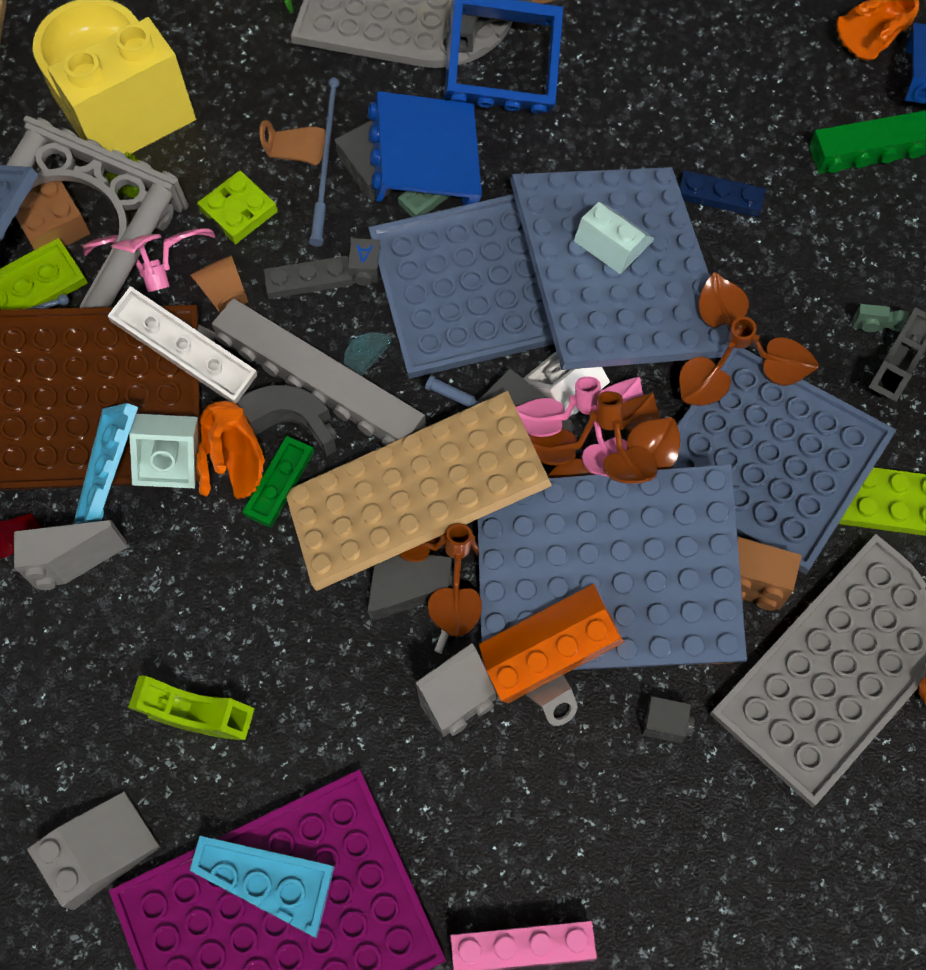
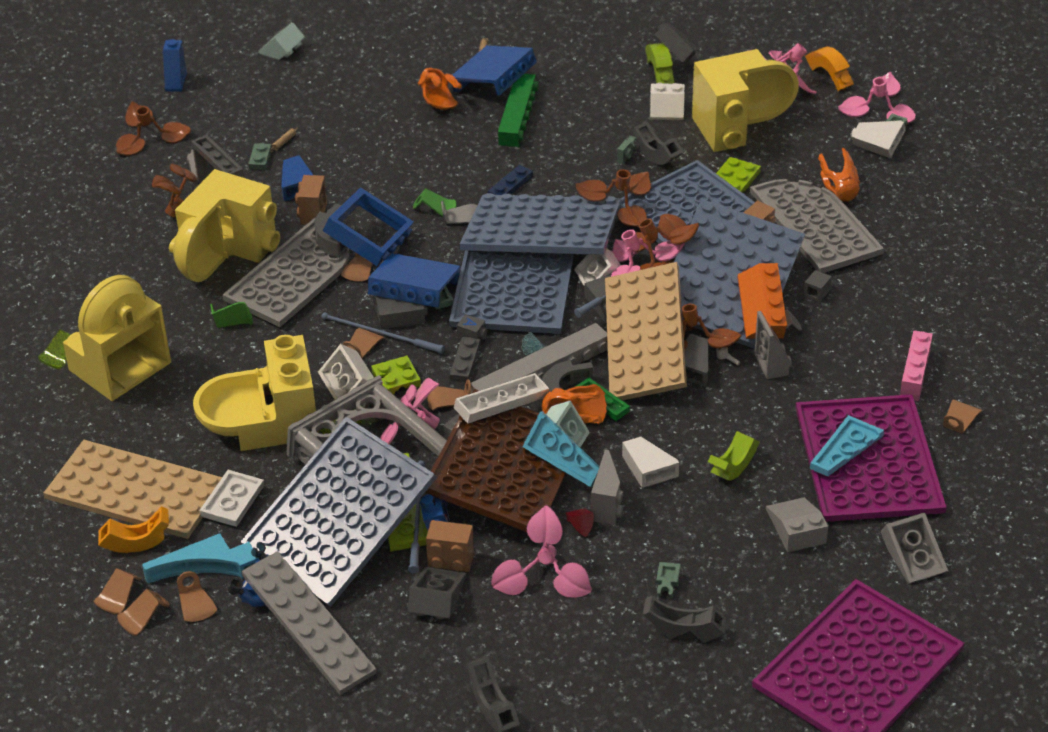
camera: 70 degrees left, 25 degrees down
(159, 588) = (649, 462): none -> white slope
(214, 154) = (344, 371): none -> white slope
(434, 78) = (357, 269): none -> medium nougat piece
(611, 150) = (459, 214): none -> light grey piece
(611, 237) = (531, 212): light aqua slope -> none
(625, 121) = (434, 201): none -> bright green piece

